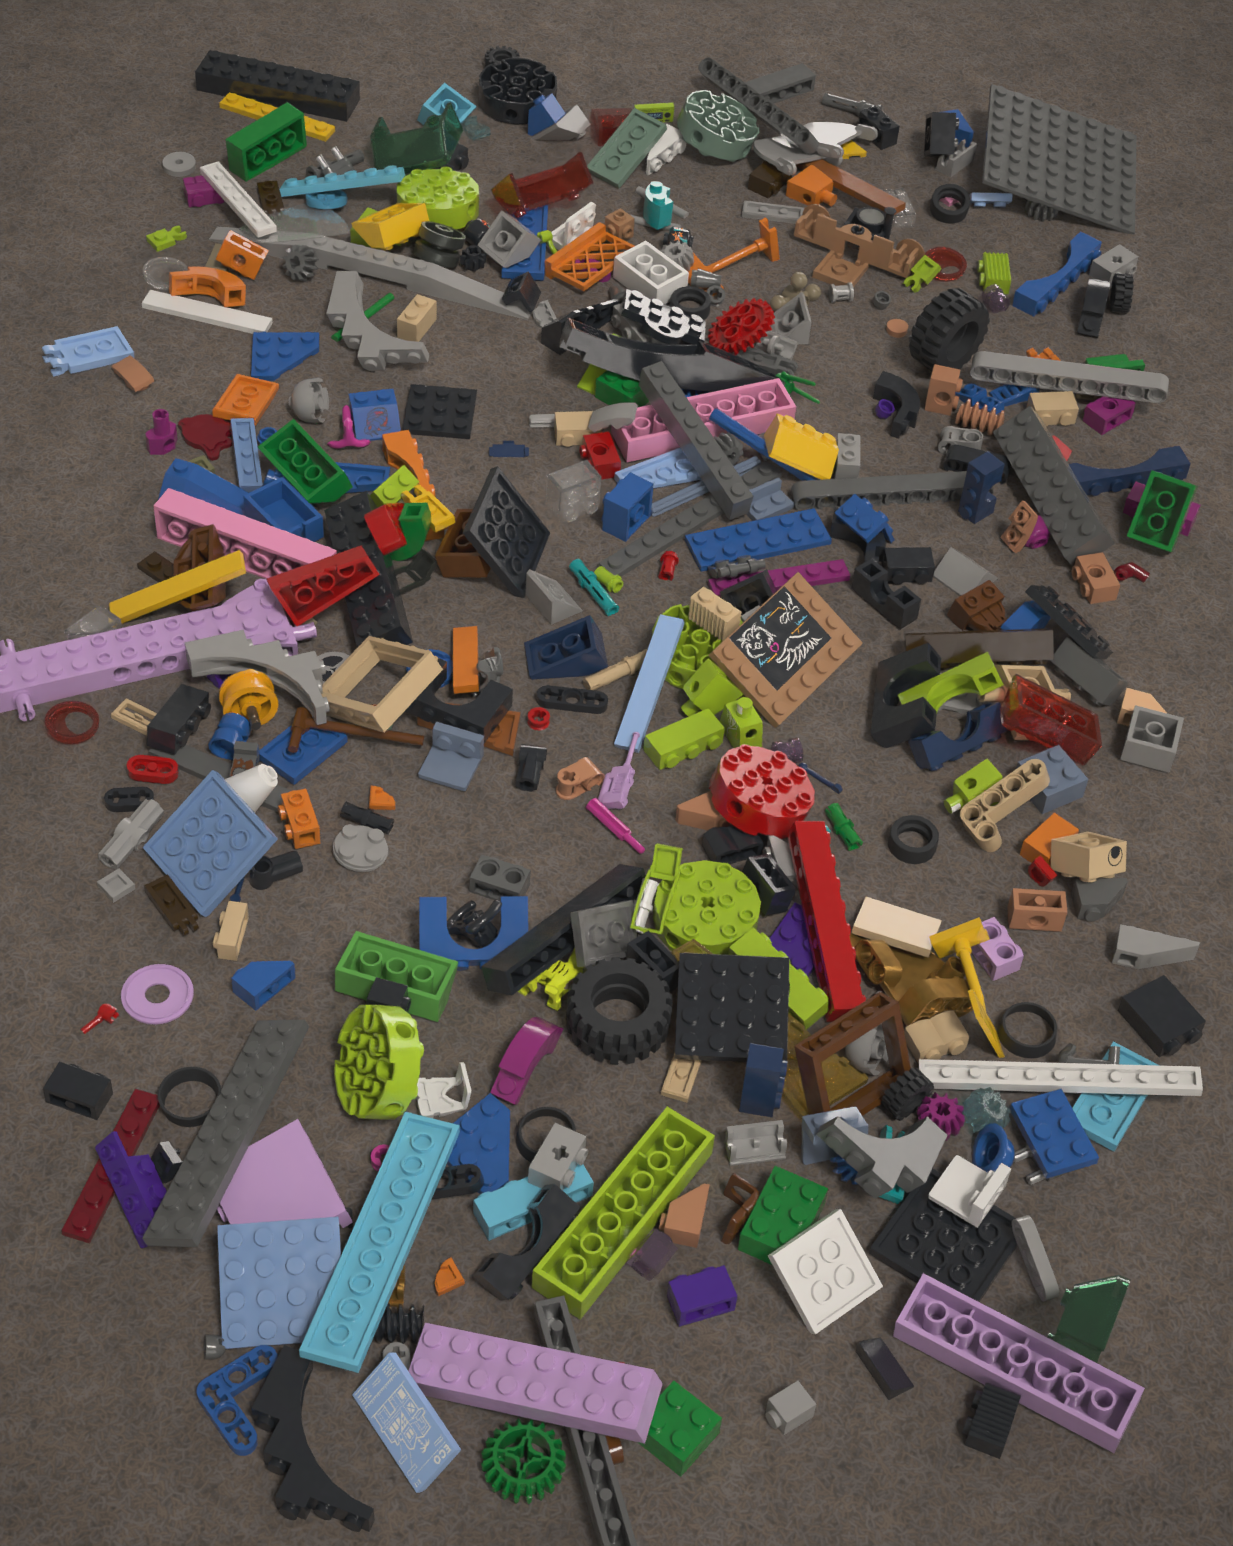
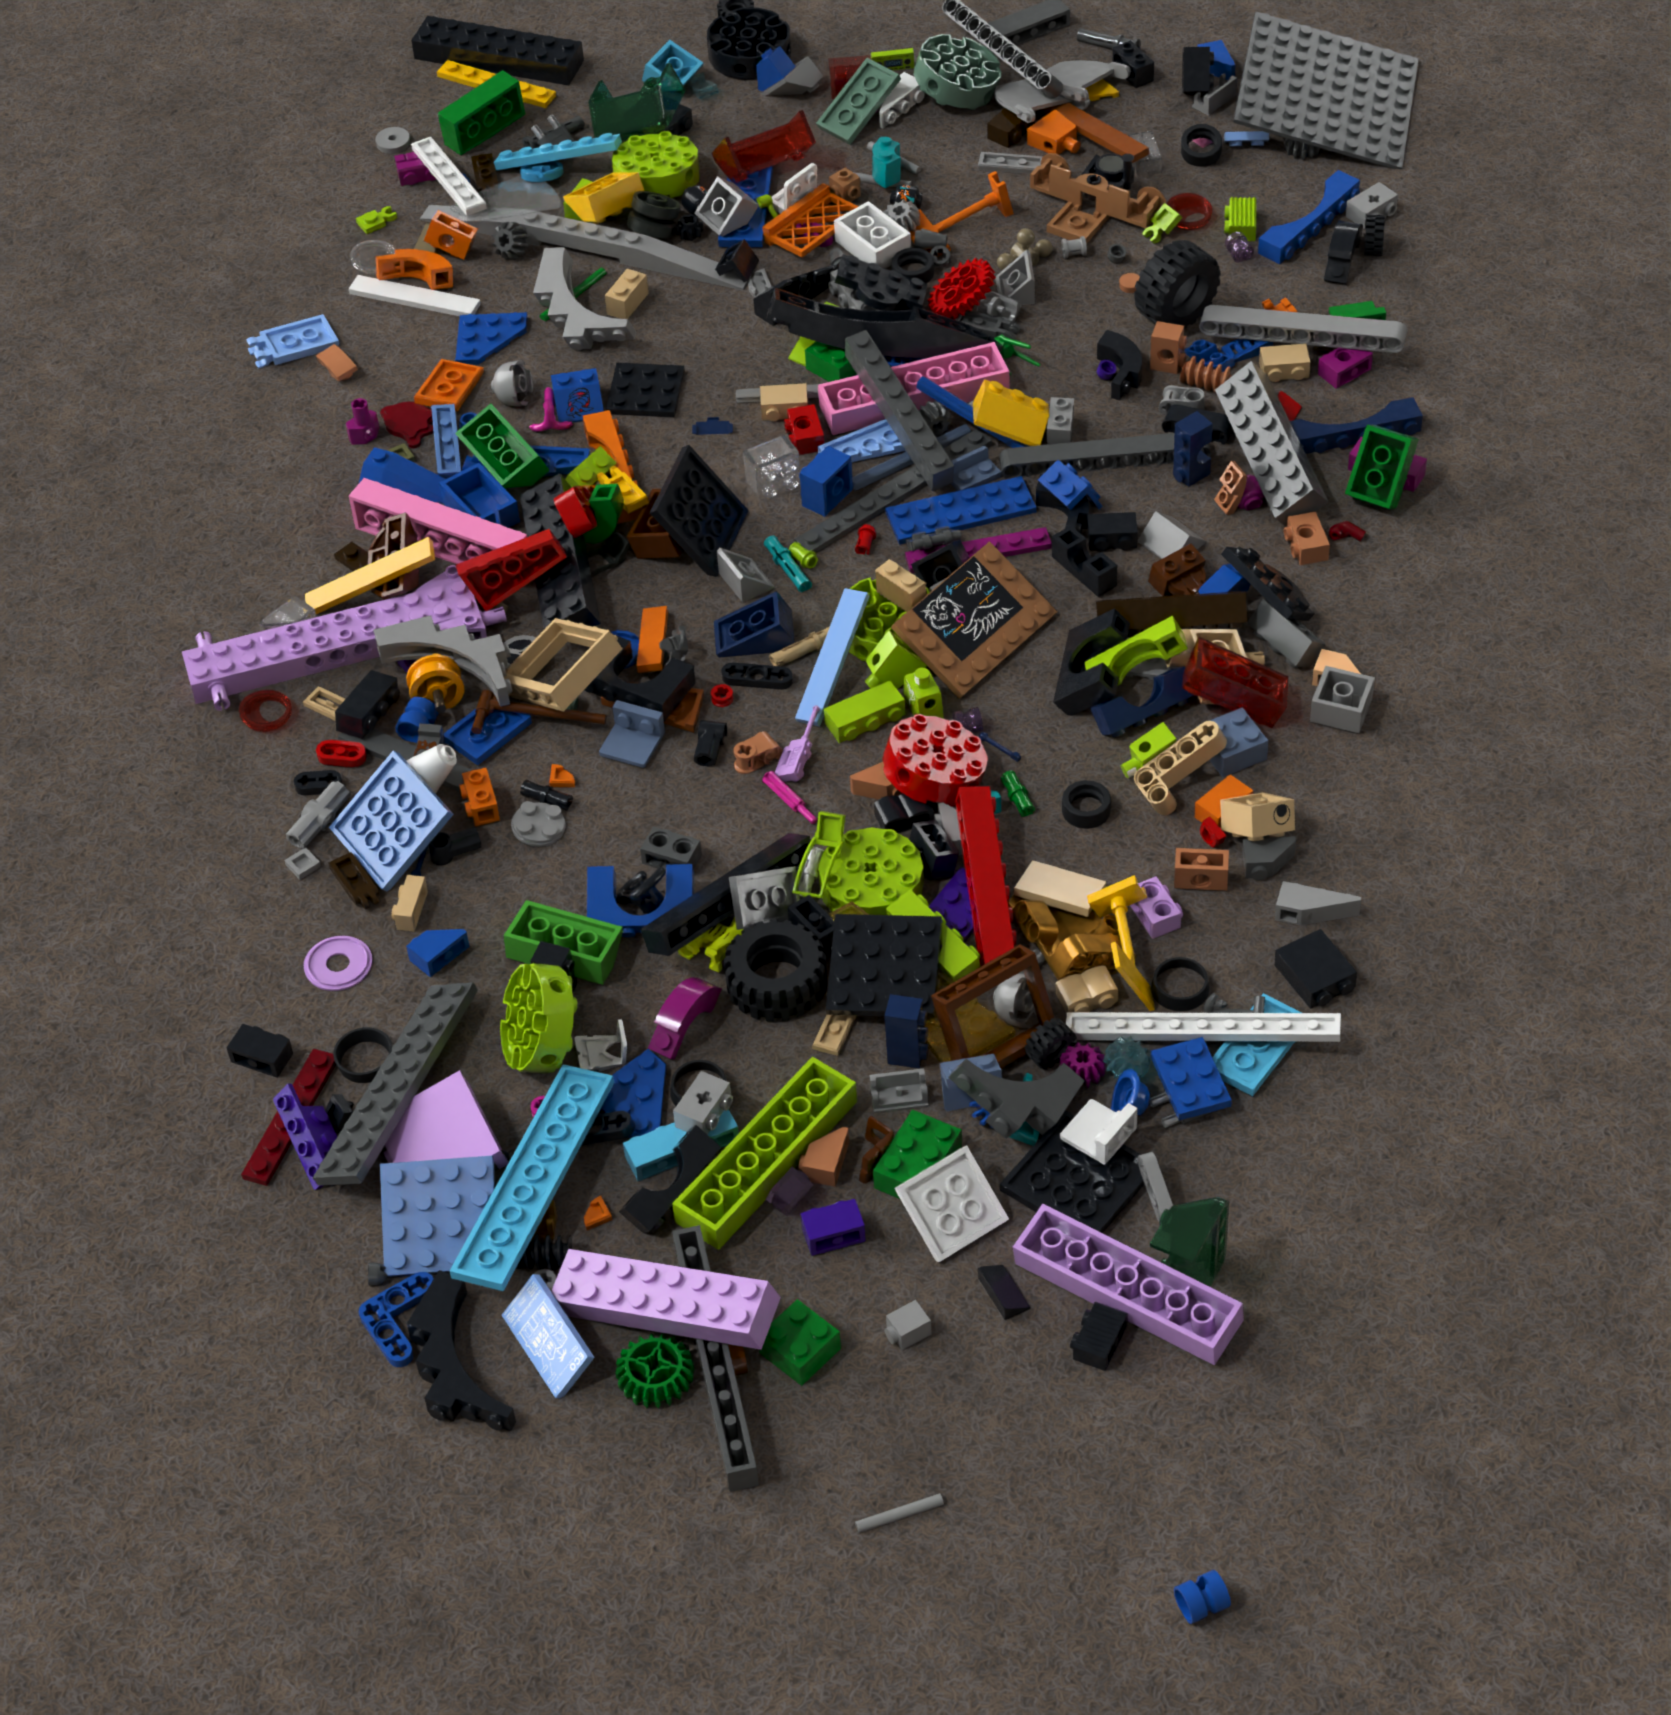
camera: 10 degrees right, 0 degrees up
(105, 1013) = (287, 981): red hand -> none
(616, 415) = (818, 387): light grey slope -> none

